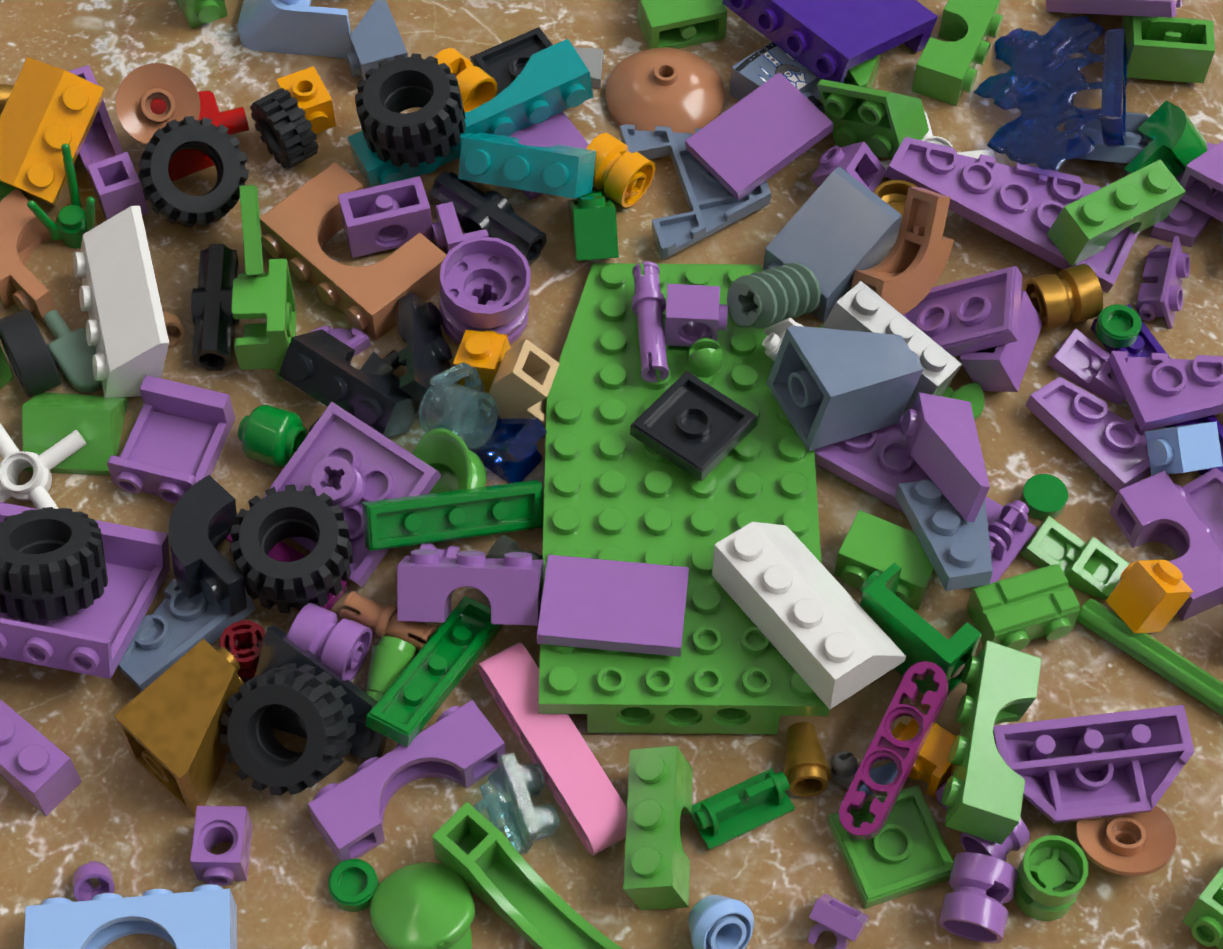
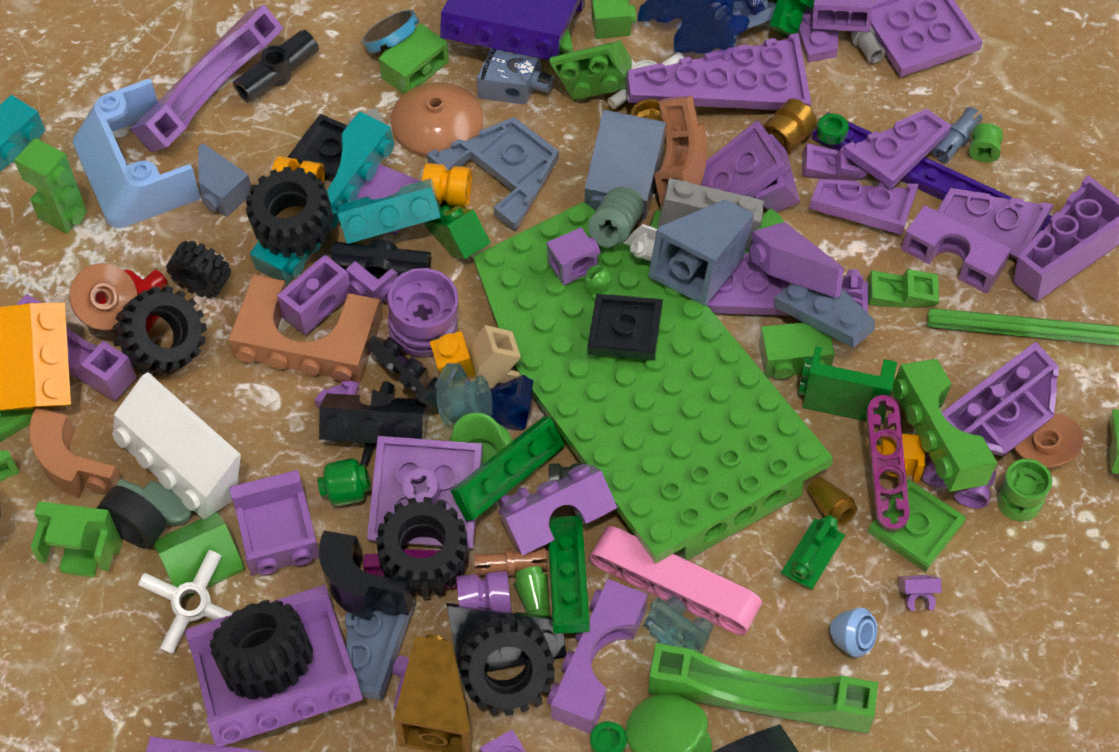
camera: 30 degrees left, 0 degrees up
(72, 219) = (90, 411): green plant -> none
(213, 308) = (237, 417): black piece -> none
(241, 634) = (432, 619): dark red wheel -> none
(251, 229) = (239, 348): bright green tile -> none
(266, 297) = (291, 408): bright green panel -> none
(315, 101) = (196, 231): light orange brick -> none
(613, 605) = (660, 468): medium lavender tile -> none
(649, 307) = (538, 264): medium lavender pin -> none
(654, 855) = (777, 592): bright green arch -> none
(759, 136) = (528, 116): medium lavender tile -> none
(803, 611) = (779, 407): white slope -> none
(845, 767) = (864, 494): arm -> none
(854, 159) = (592, 108): medium lavender brick -> none
(980, 890) = (994, 530): medium lavender wheel -> none
(1024, 608) = (897, 334): bright green brick -> none
(1044, 496) = (859, 258): green tile -> none
(1132, 201) = (787, 56): bright green arch -> none
(1149, 595) = (965, 286): light orange brick -> none
(1168, 269) = (832, 77): medium lavender hinge -> none
(1184, 448) = (925, 185): light blue brick -> none

